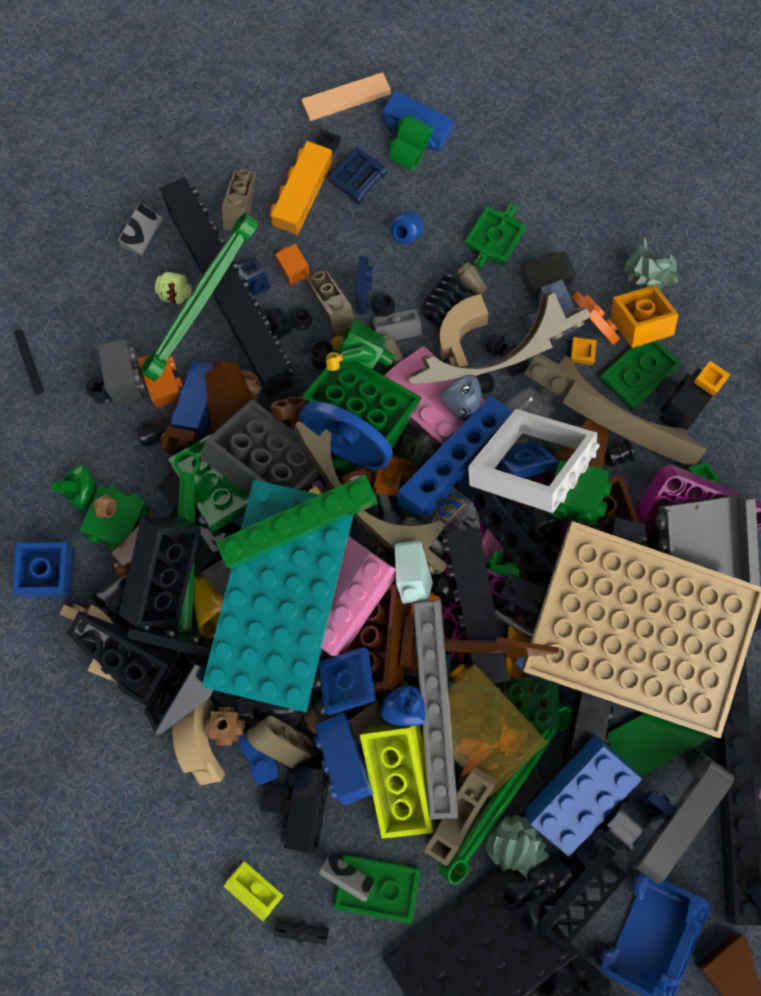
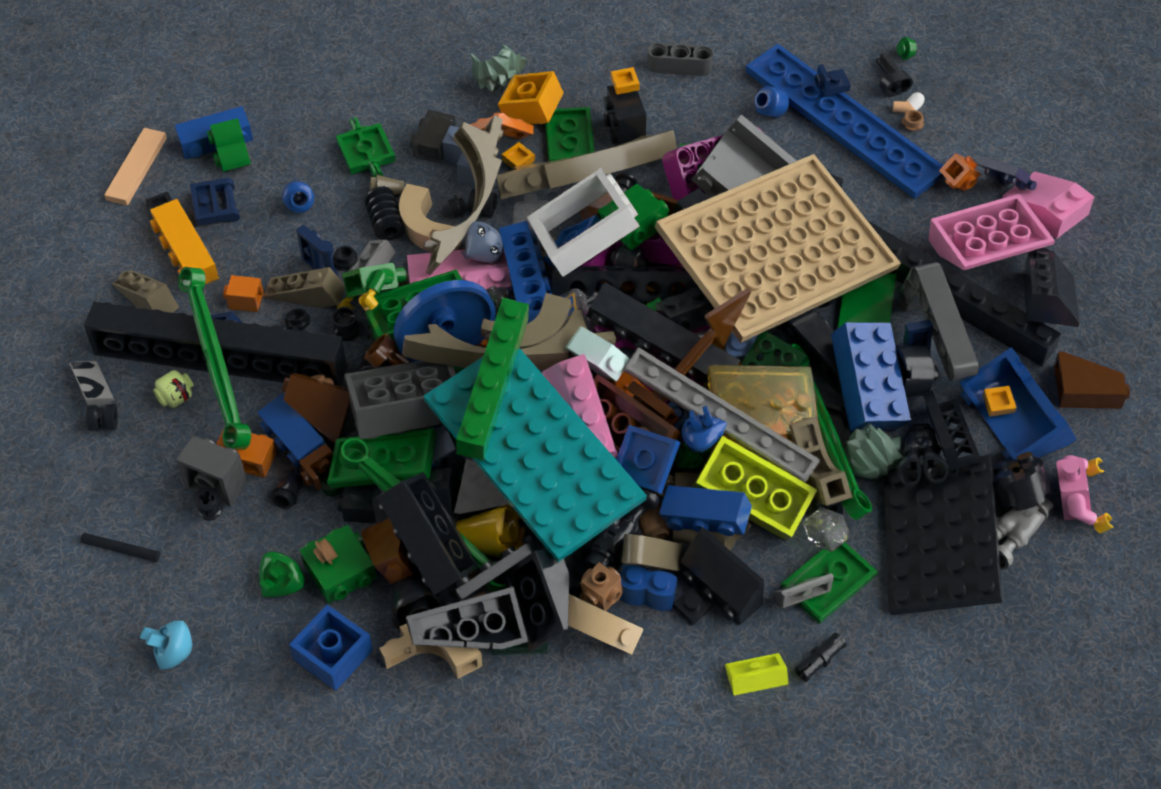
camera: 50 degrees left, 20 degrees down
(114, 259) = (102, 417): none -> black wheel
(407, 513) = (544, 326): none -> dark tan arch
(414, 859) = (826, 529): none -> clear brick
(654, 914) = (999, 401): none -> light orange plate

